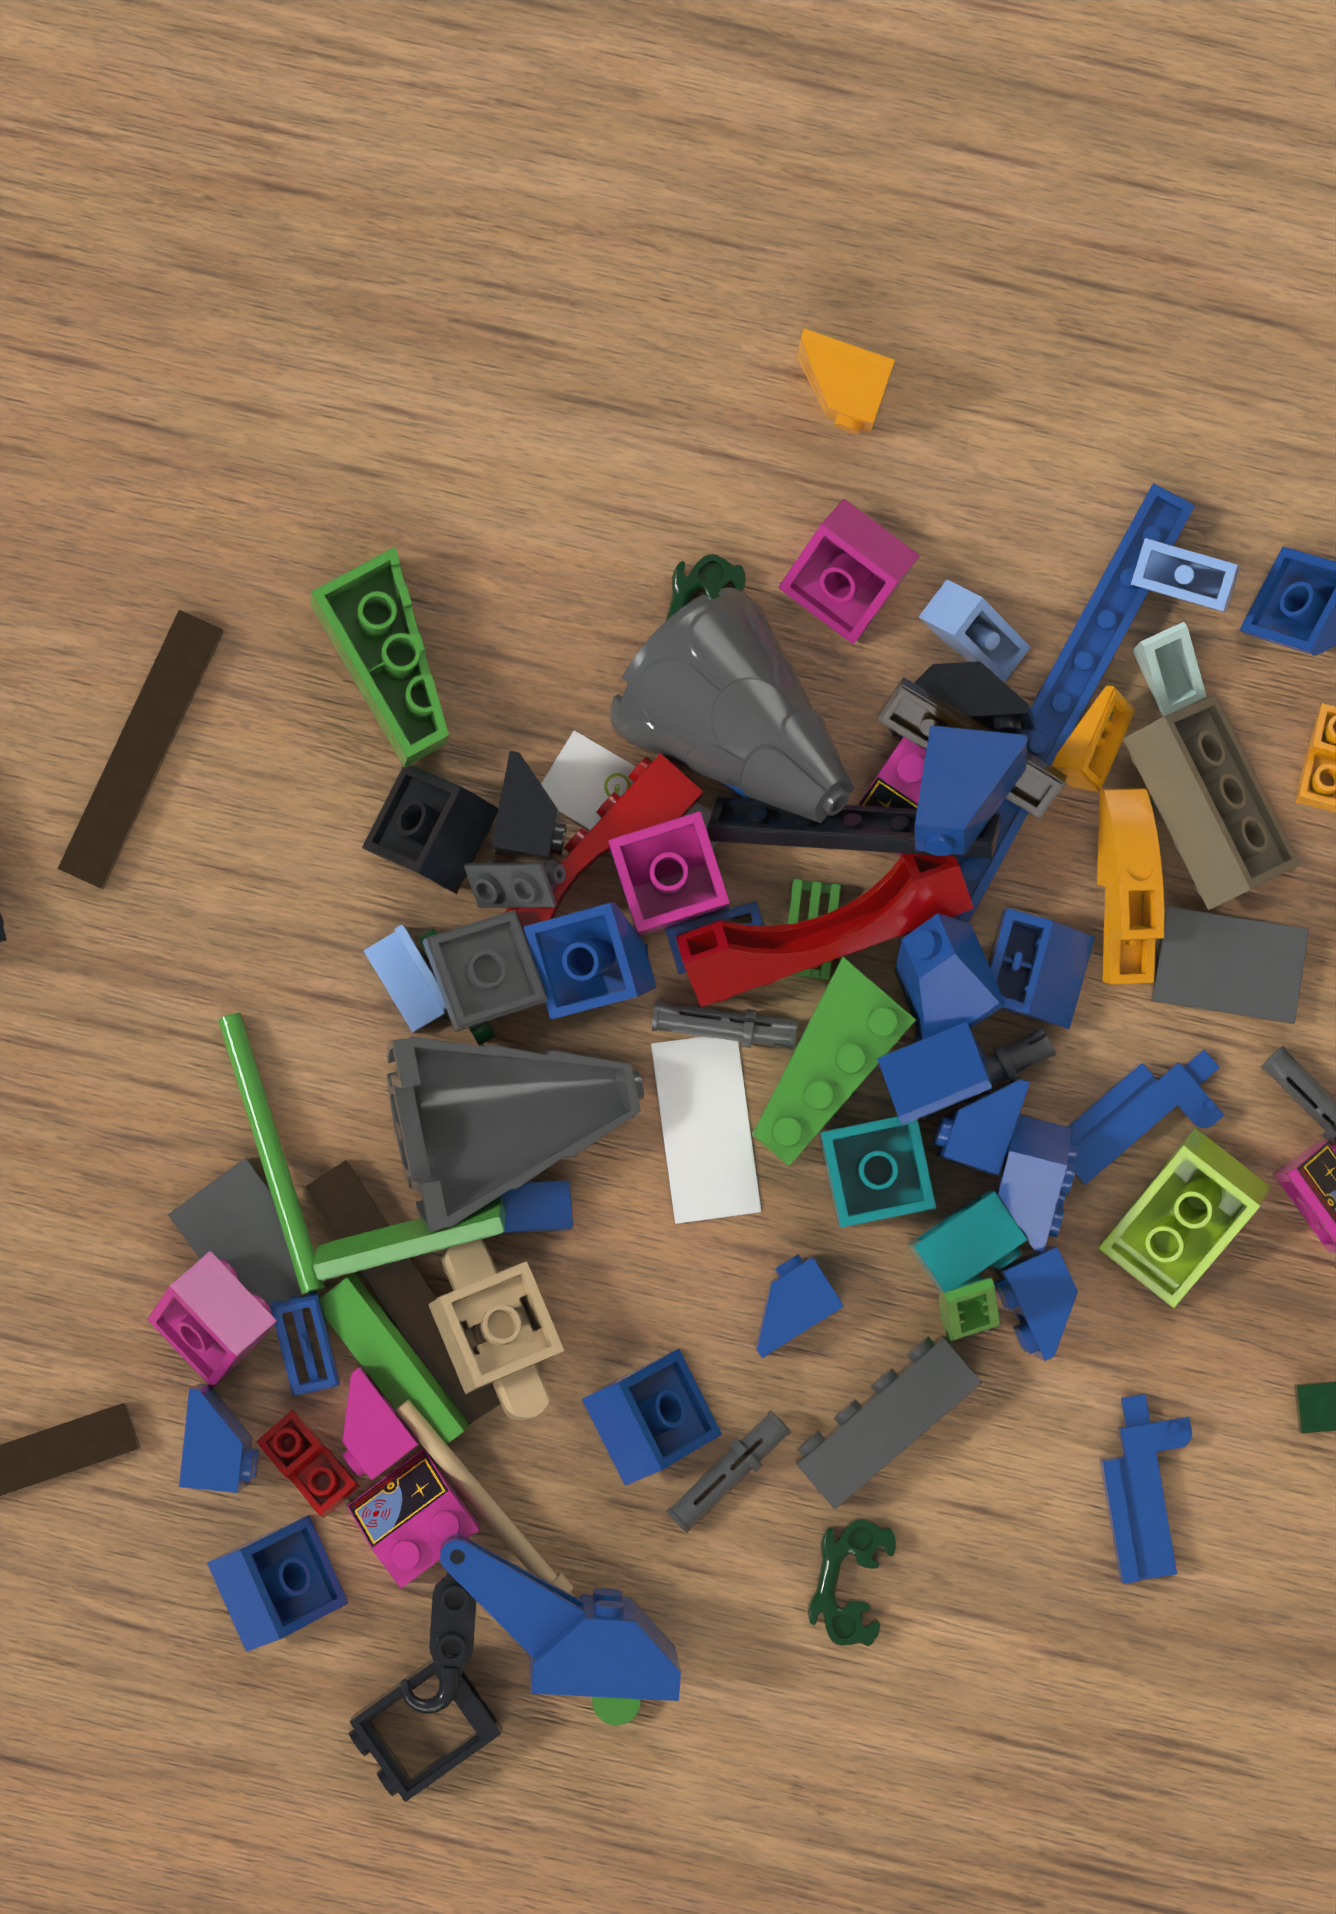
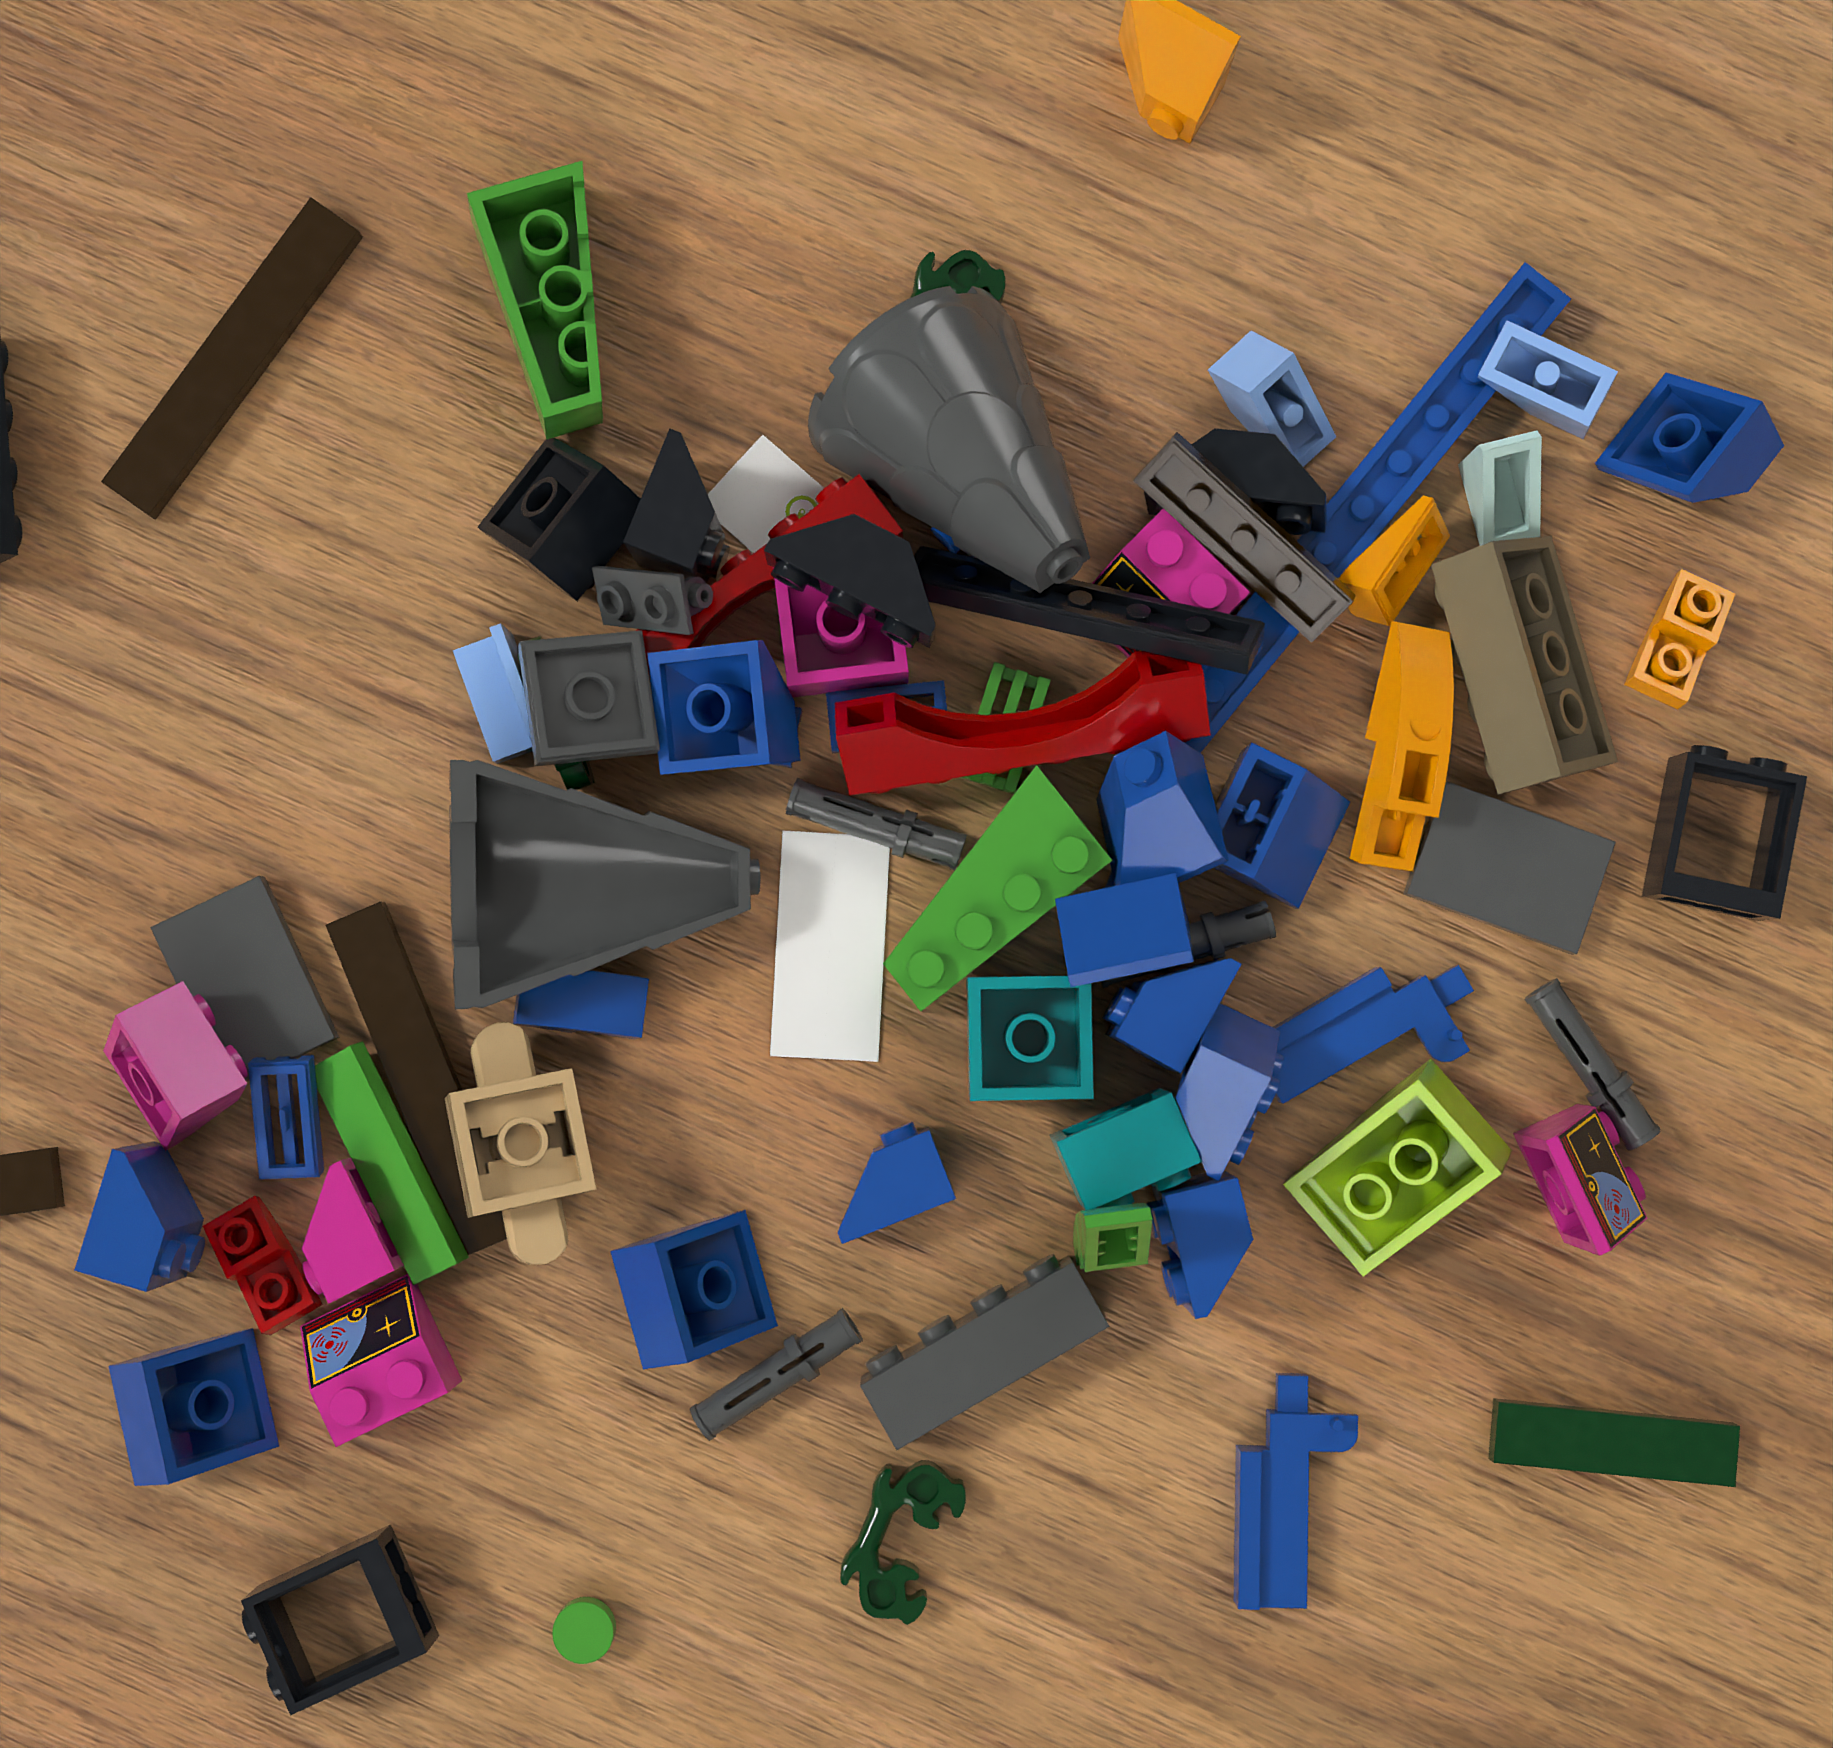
camera: 15 degrees right, 0 degrees up
(270, 1151) = (290, 877): bright green piece -> none
(404, 1241) = (427, 1015): bright green tile -> none
(478, 1496) = (534, 1475): tan bar -> none
(574, 1644) = (545, 1563): blue slope -> none
(680, 835) = (860, 572): none -> black slope
(848, 571) = (1132, 300): dark pink slope -> none
(964, 785) = (1230, 575): blue slope -> none

